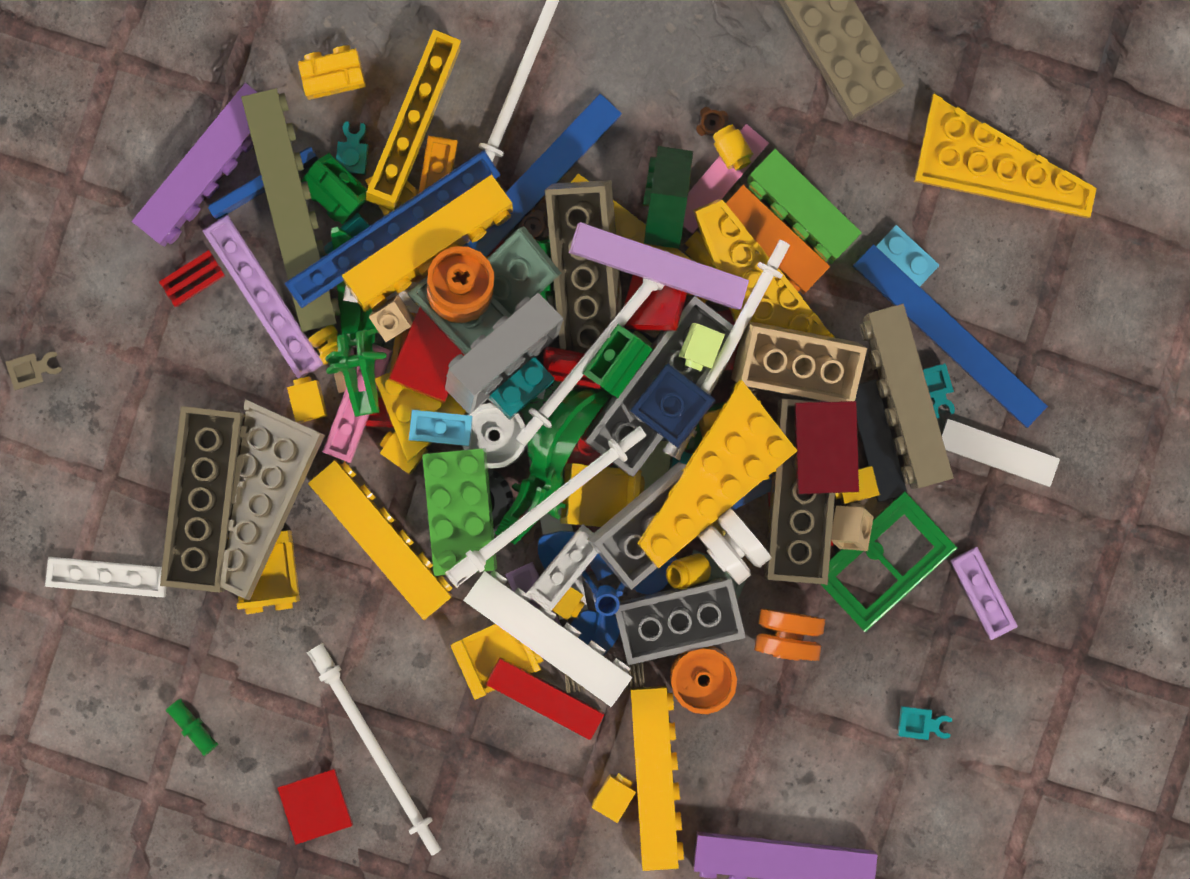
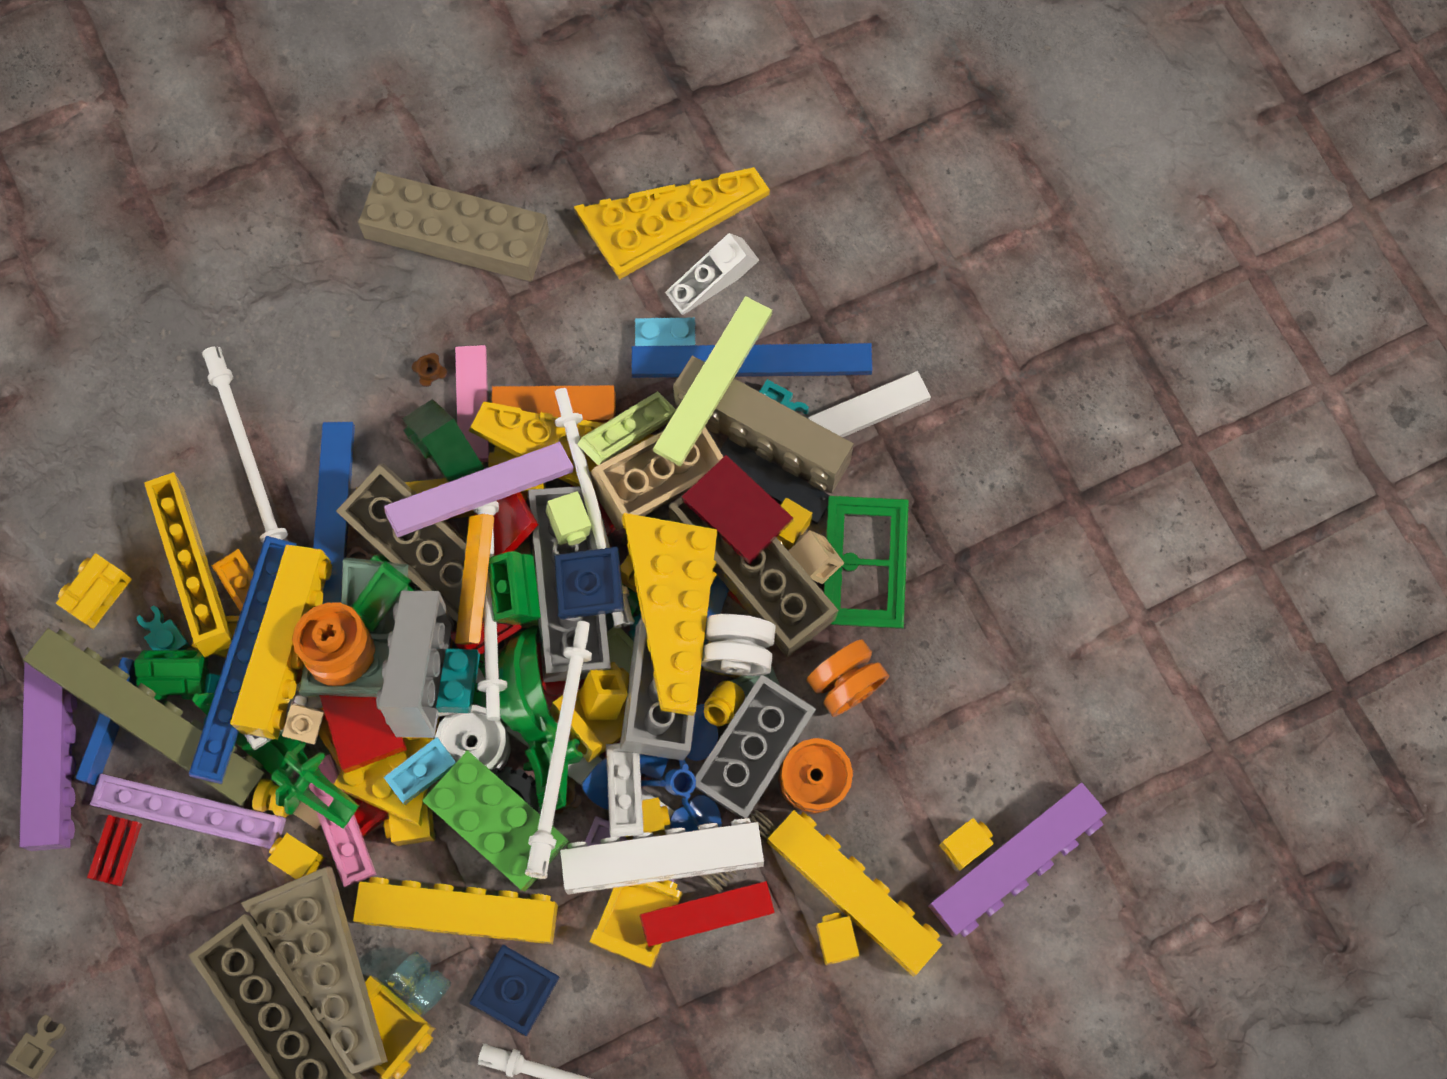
camera: 45 degrees left, 15 degrees down
(315, 564) = (419, 983): none -> clear light blue wheel
(373, 626) = (514, 990): none -> dark blue tile
(522, 277) = (380, 595): none -> green tile
(596, 329) = (474, 579): none -> light orange tile
(611, 489) = (603, 695): none -> yellow brick
(732, 148) = (460, 369): yellow brick -> none
(762, 818) = (967, 843): none -> yellow brick
(802, 206) = (551, 359): bright green brick -> none
(809, 310) = (627, 428): none -> yellowish green tile
(899, 338) = (712, 381): none -> yellowish green tile
(918, 723) = (1011, 656): teal plate -> none
(983, 593) = (960, 517): lavender tile -> none
(984, 243) = (712, 273): none -> white slope

